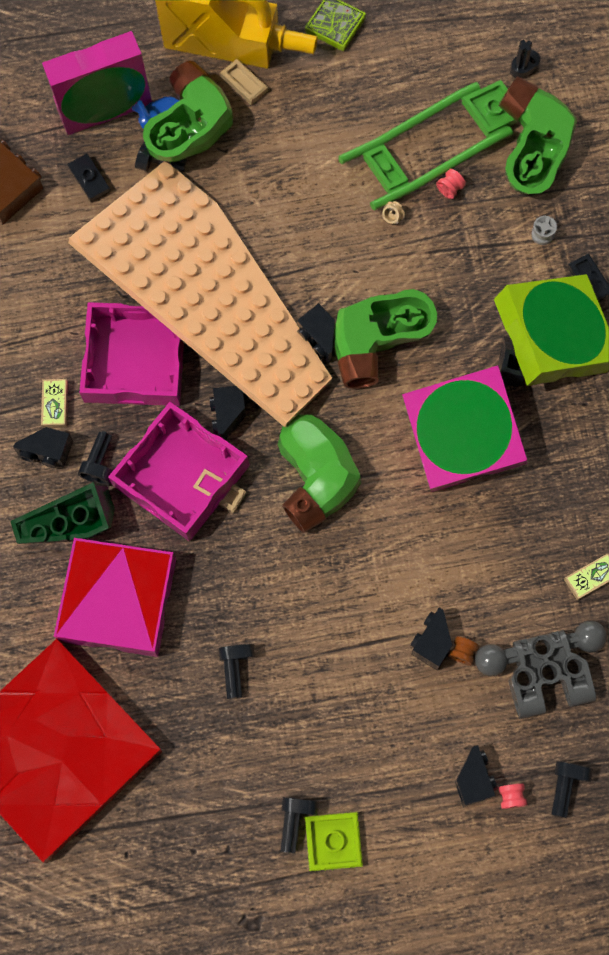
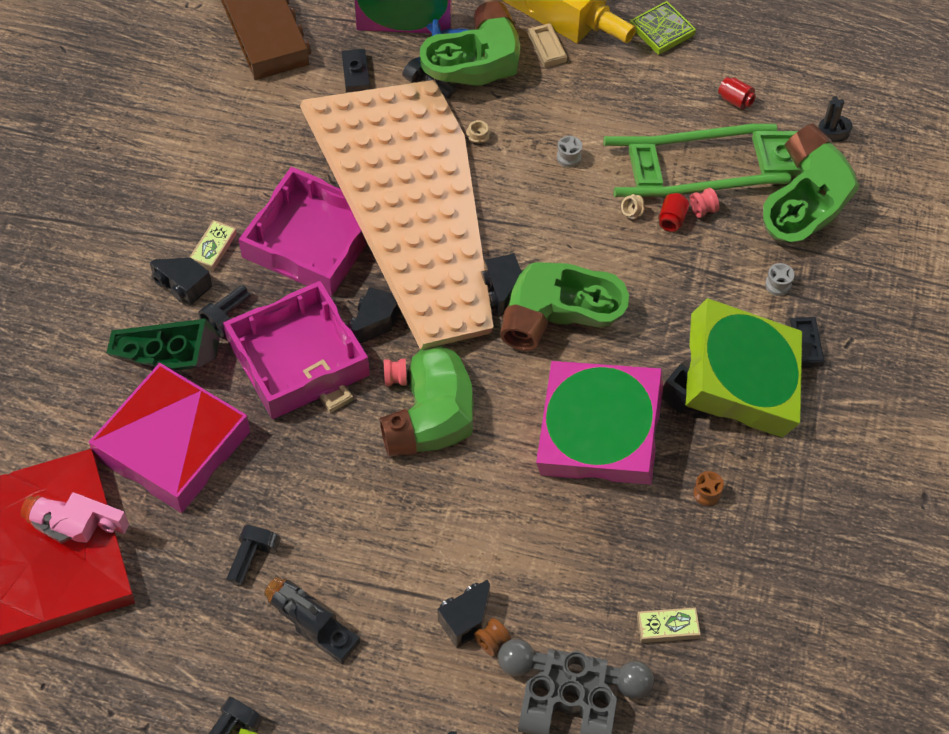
camera: 20 degrees right, 15 degrees down
(79, 713) = (72, 519): none -> bright pink plate
(227, 189) = (478, 131): none -> tan plate
(271, 455) = (395, 372): none -> coral wheel
(314, 175) = (565, 146): none -> light grey wheel
(314, 701) = (311, 619): none -> black plate
(429, 63) = (737, 92): none -> red brick
(429, 203) = (673, 212): none -> red brick
(574, 441) = (712, 482): none -> dark orange wheel

